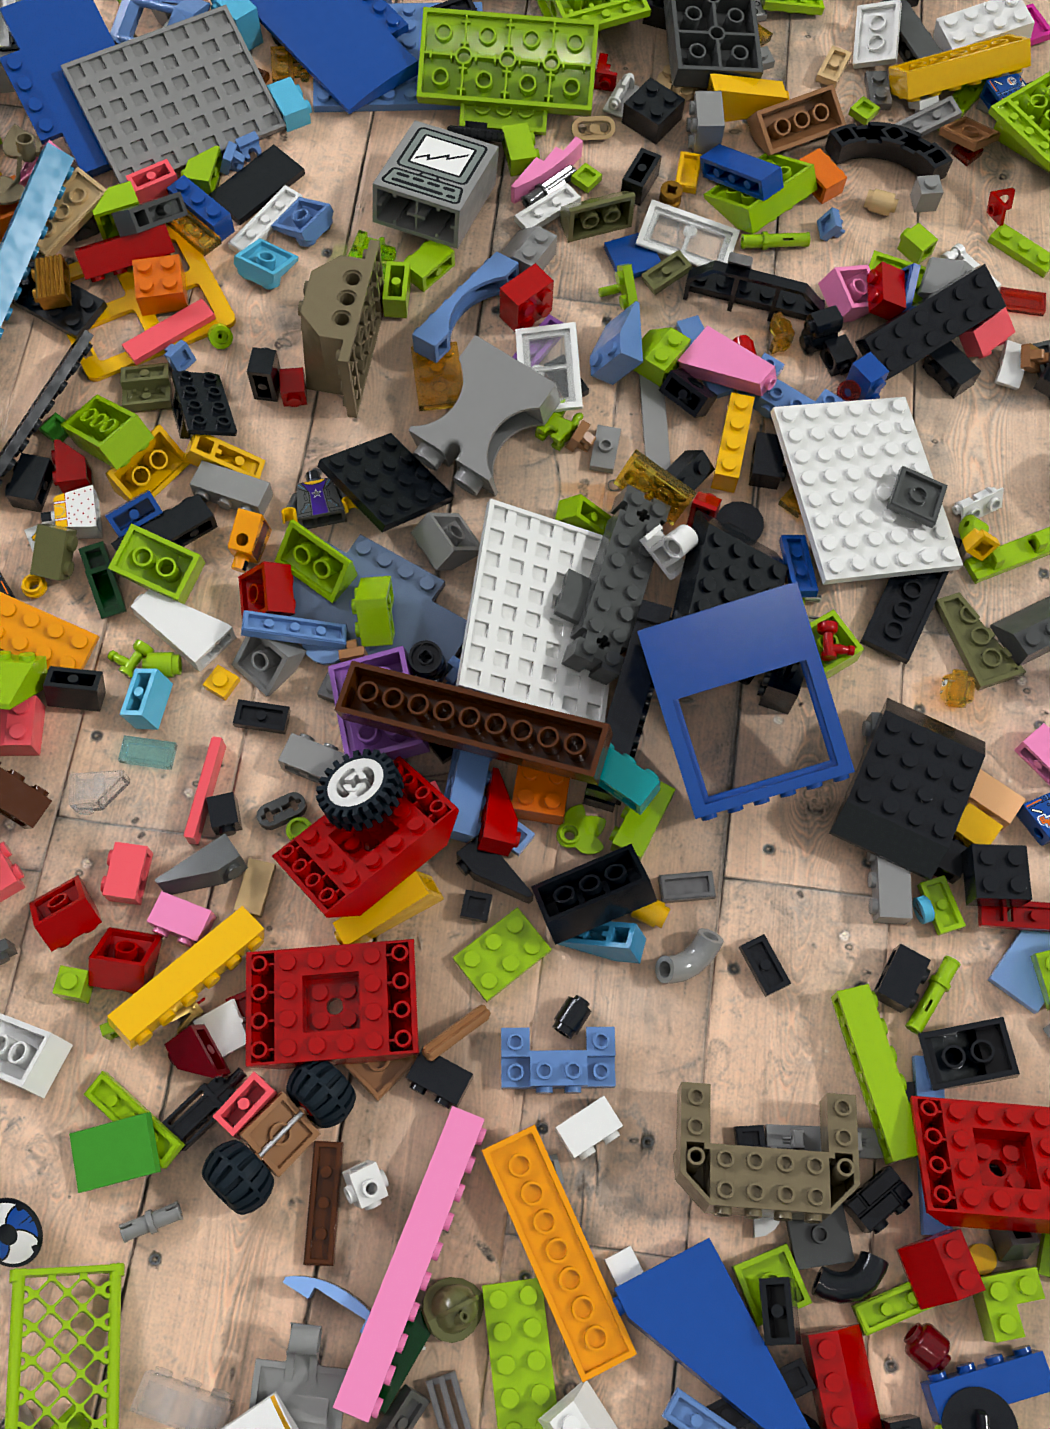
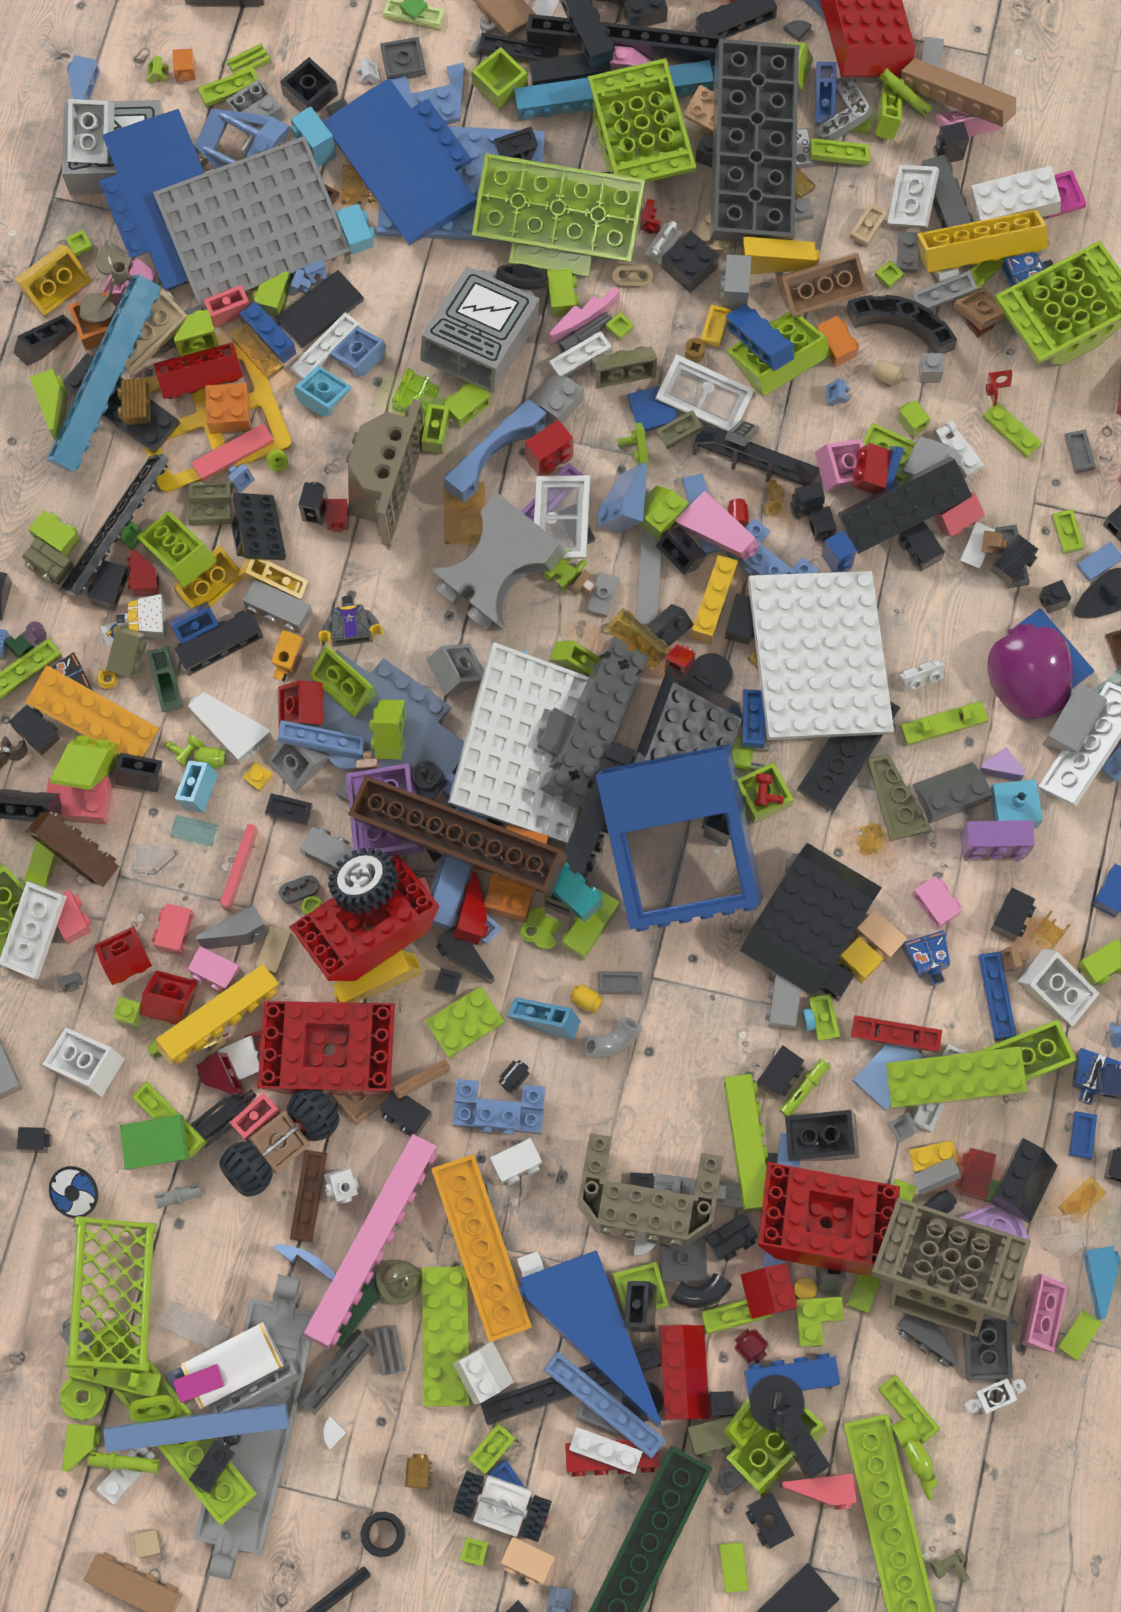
camera: 10 degrees right, 5 degrees up
(149, 214) = (223, 343): dark grey slope -> none
(157, 564) = (211, 671): lime slope -> none
(224, 814) = (253, 888): black brick -> none
(385, 481) = (409, 612): black plate -> none
(594, 893) = (541, 981): black brick -> none
(642, 174) = (668, 331): black brick -> none
(671, 548) = (640, 697): white pin -> none
(764, 965) = (673, 1051): black plate -> none
(775, 240) = (781, 403): lime pin -> none
(852, 386) = (826, 560): clear red plate -> none
(917, 496) = (861, 668): dark grey plate -> none
(976, 537) = (911, 704): yellow leg -> none
(996, 875) = (866, 998): black brick -> none
(1024, 301) = (1000, 482): clear red tile -> none

